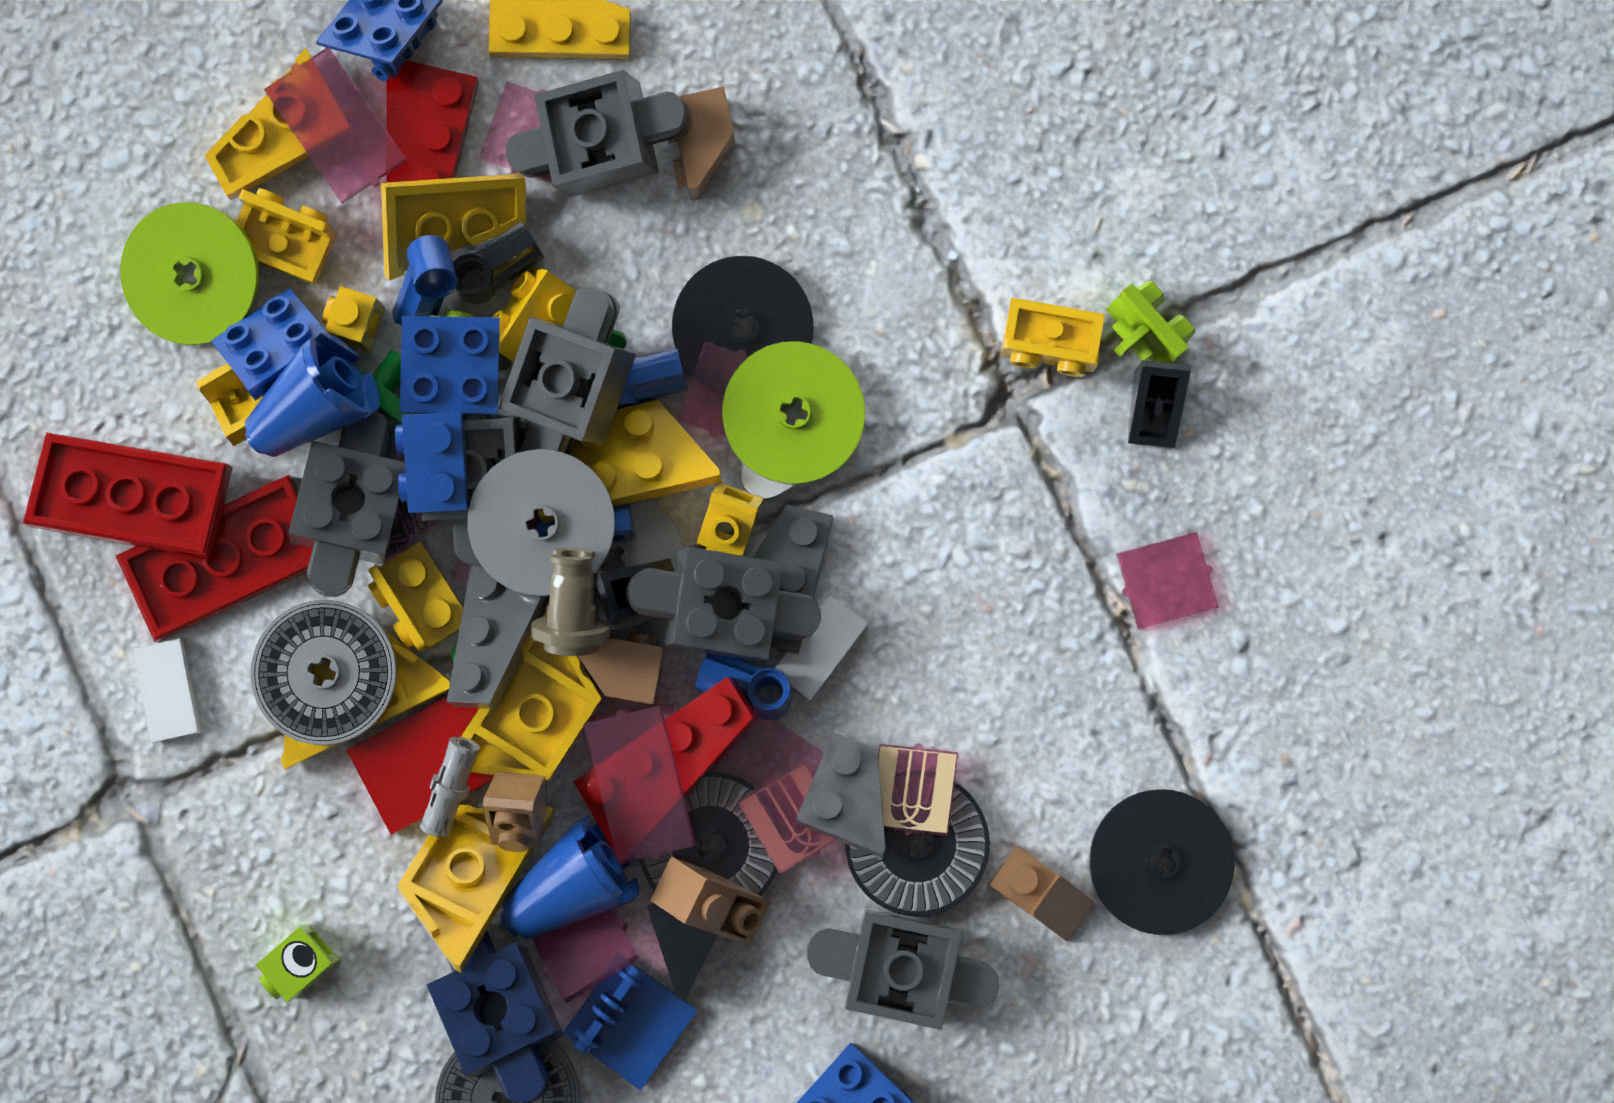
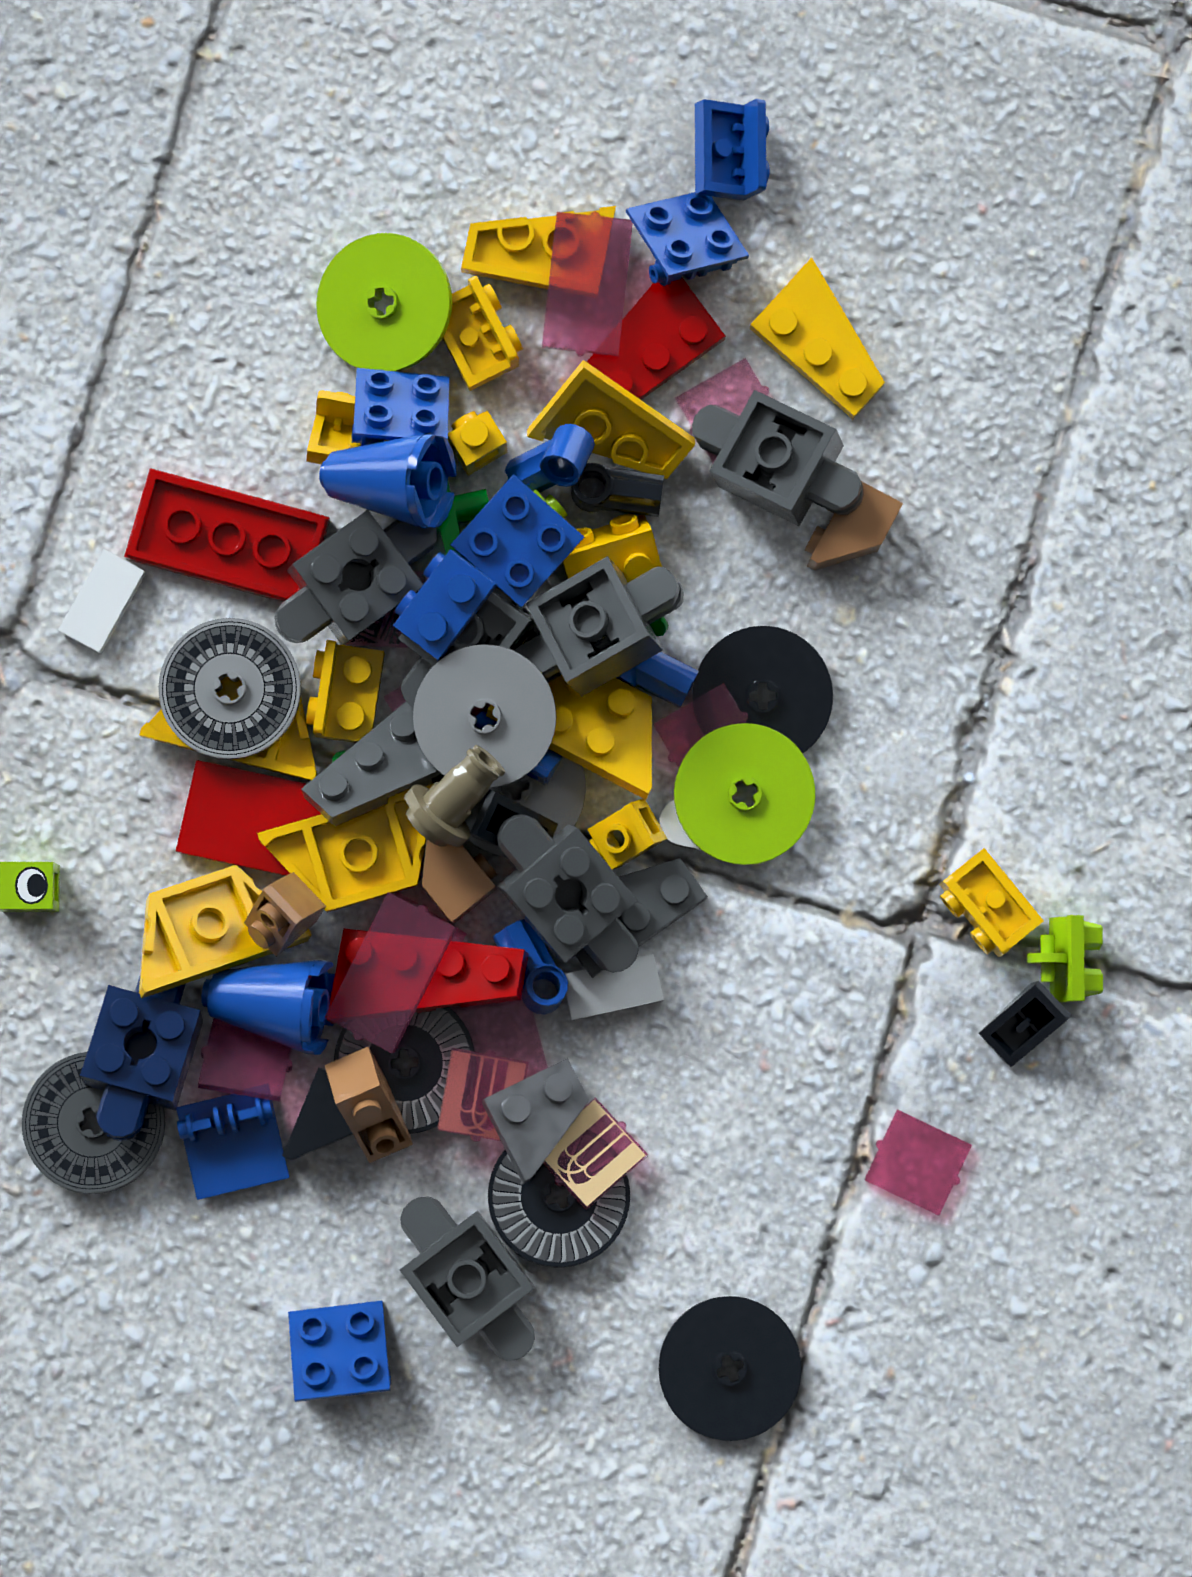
camera: 35 degrees right, 0 degrees up
(128, 495) = (197, 431): red tile -> none
(449, 786) = (249, 853): light grey pin -> none
(1041, 893) = (619, 1313): medium nougat slope -> none

